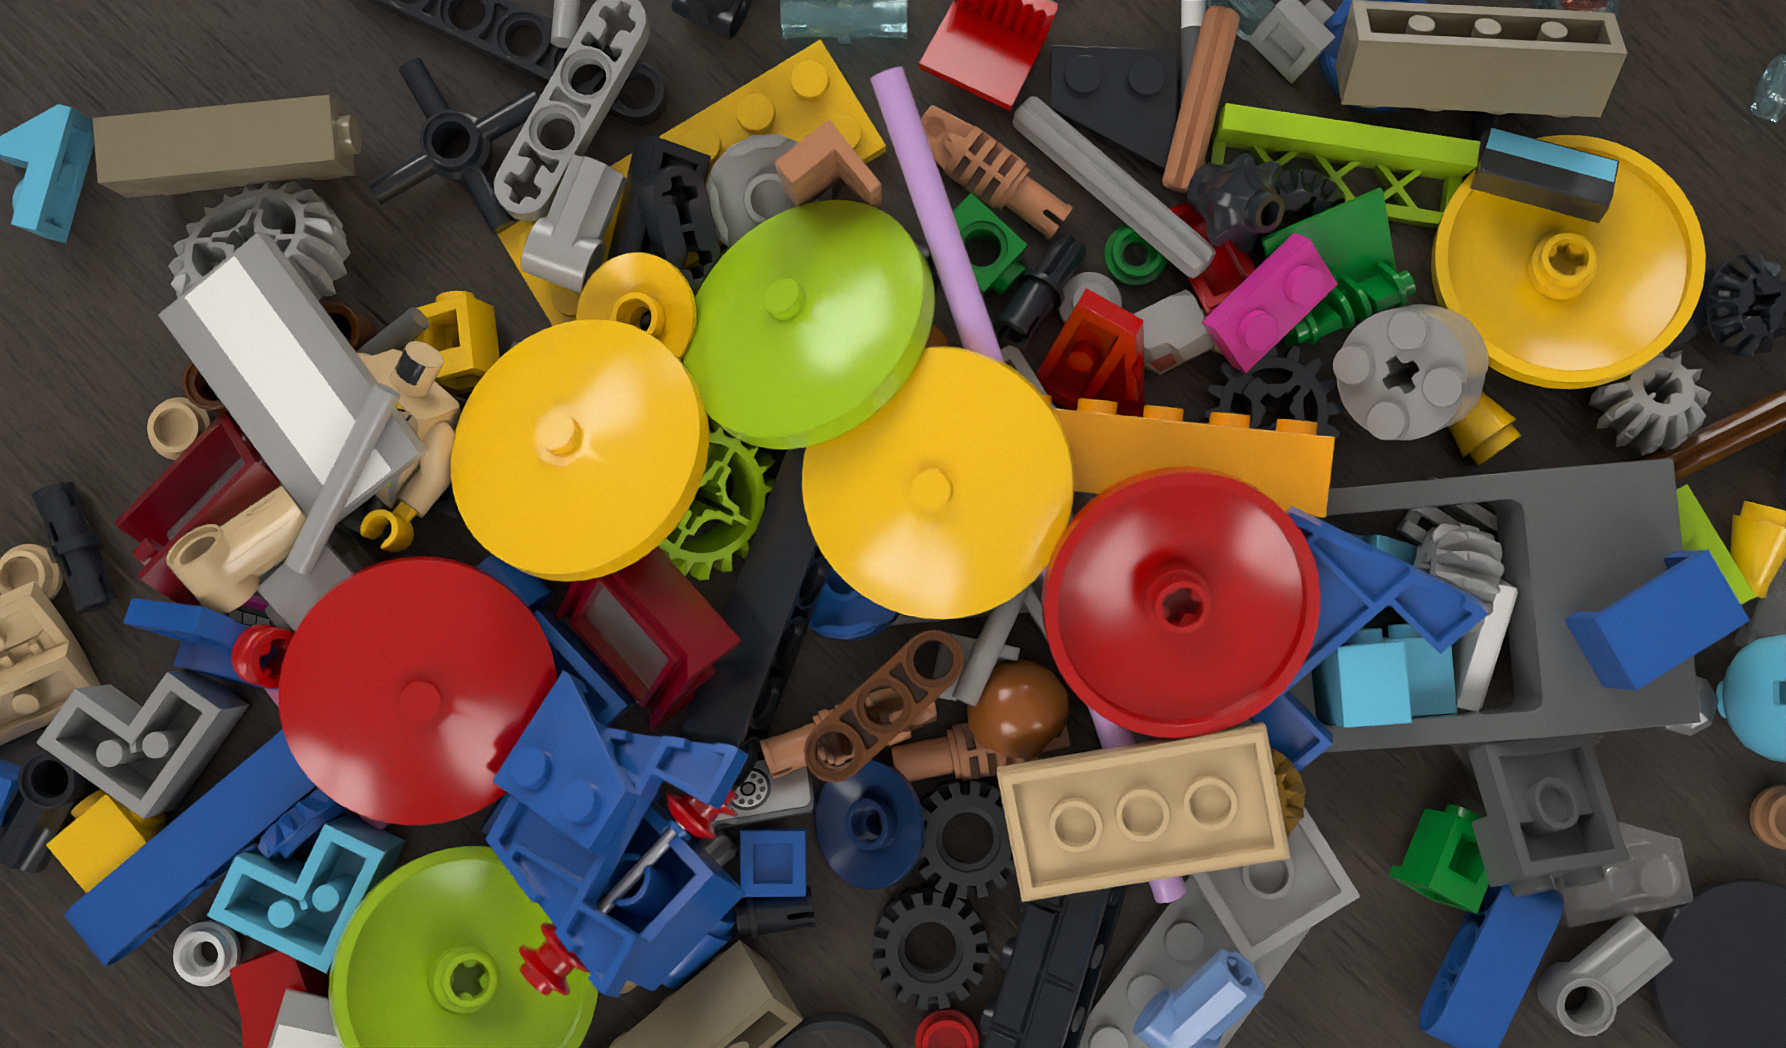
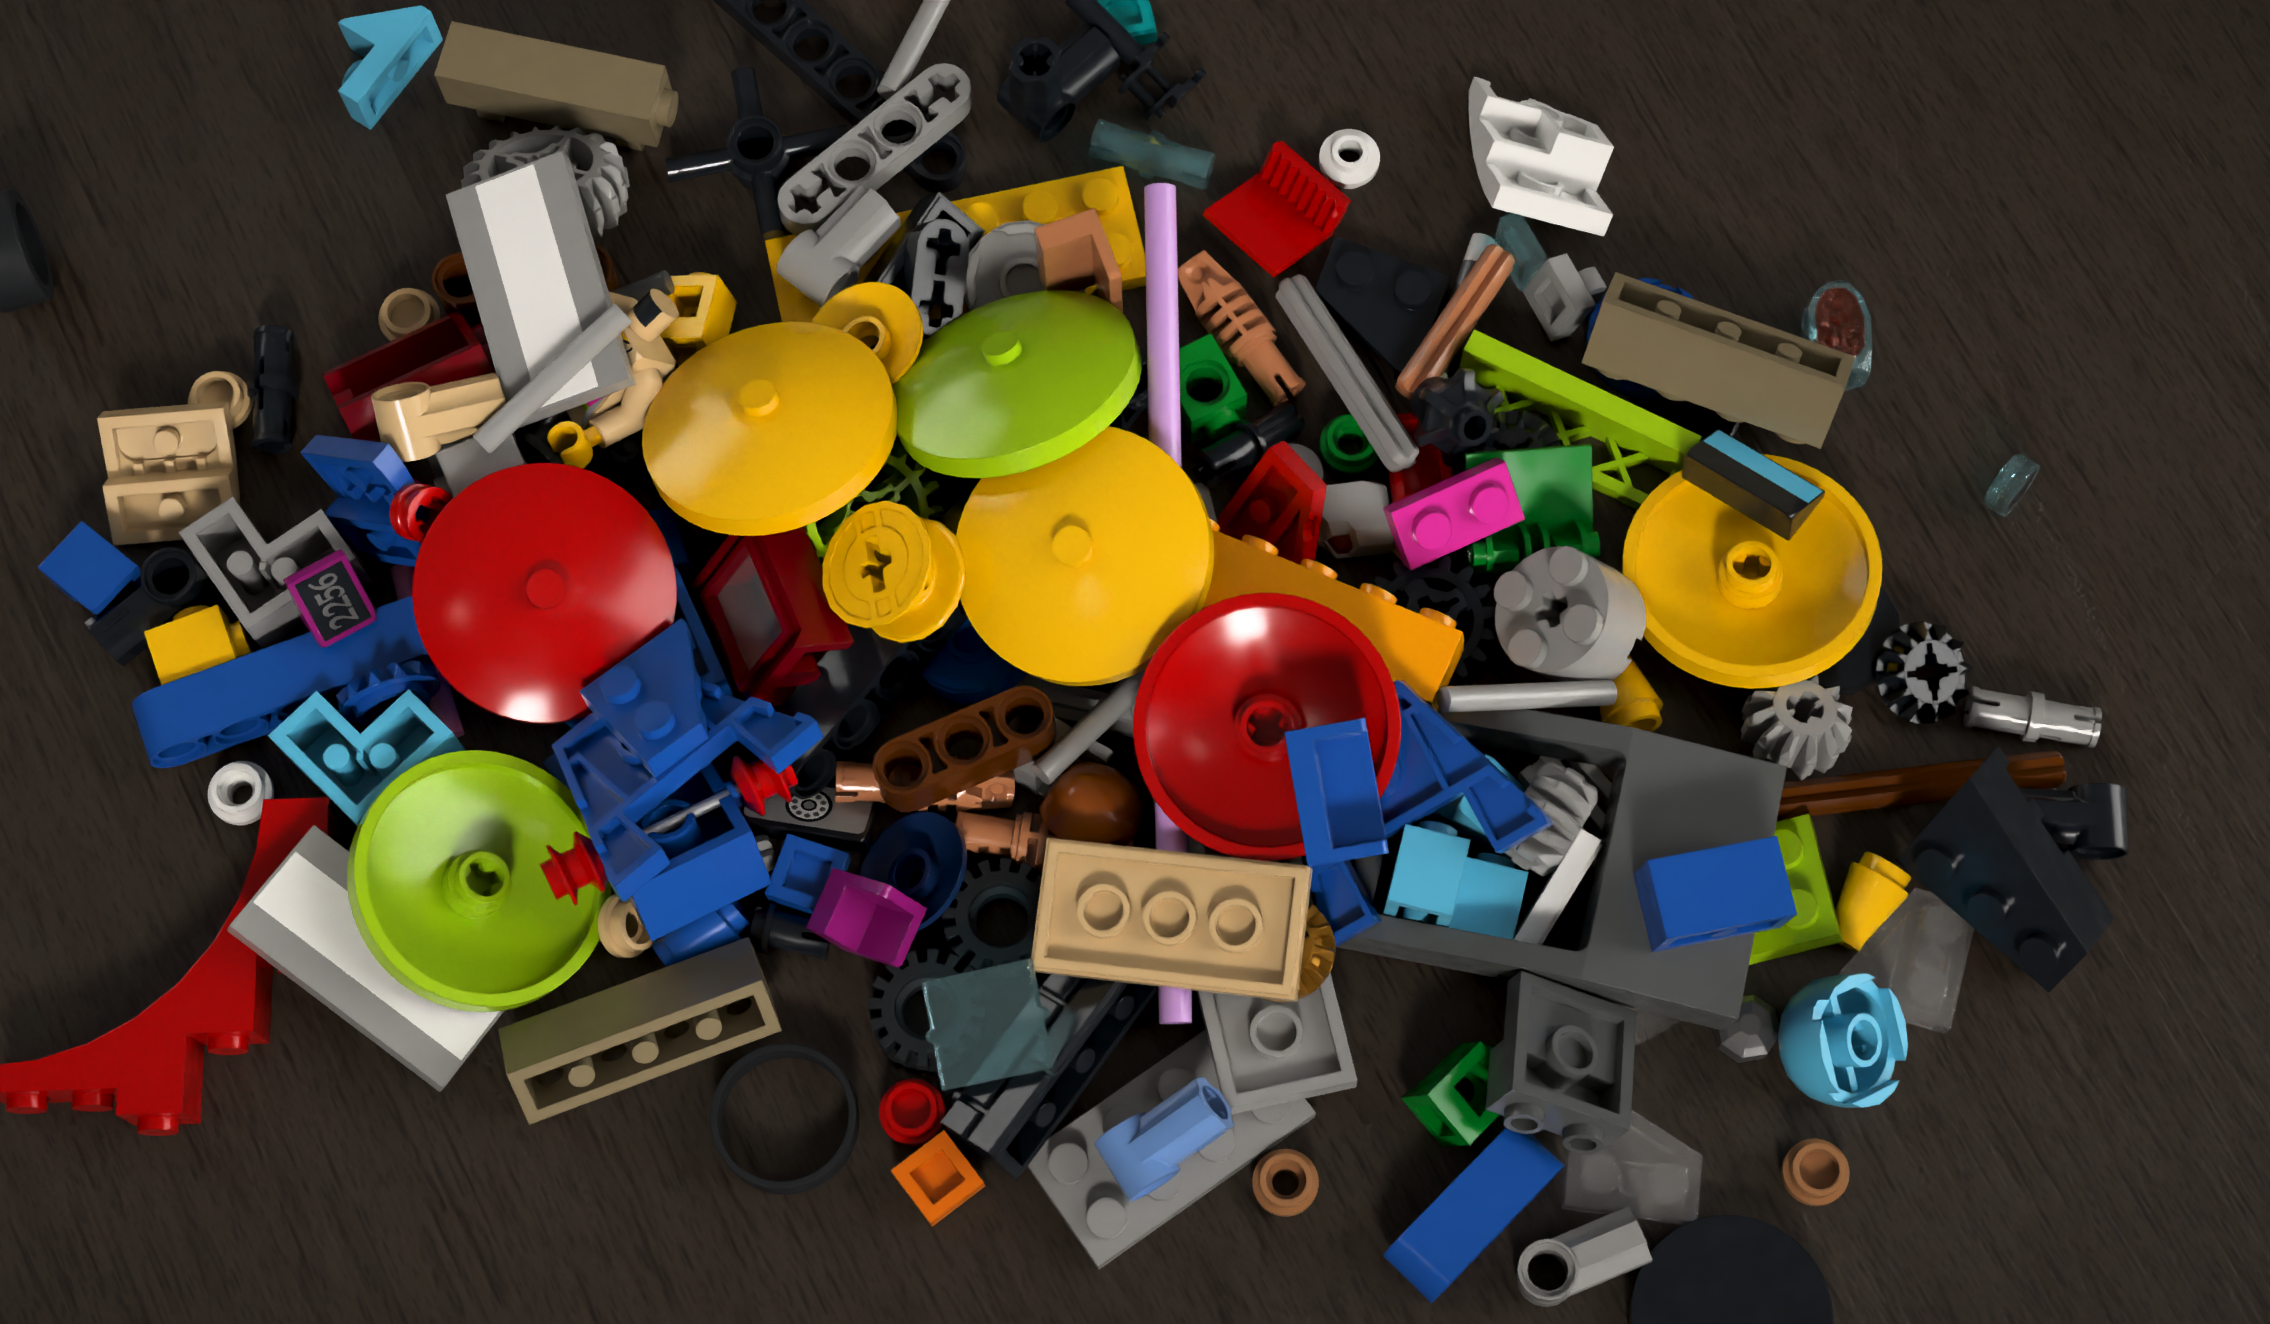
camera: 20 degrees right, 15 degrees down
(213, 761) = (330, 599): none -> slope
(755, 560) = (893, 572): none -> yellow piece
(845, 886) = (866, 917): none -> magenta panel
(998, 961) = (987, 1024): none -> clear light blue piece
(1277, 658) = (1336, 792): none -> blue panel
(1324, 1000) = (1285, 1161): none -> medium nougat plate
(1402, 470) = (1526, 696): none -> light grey bar

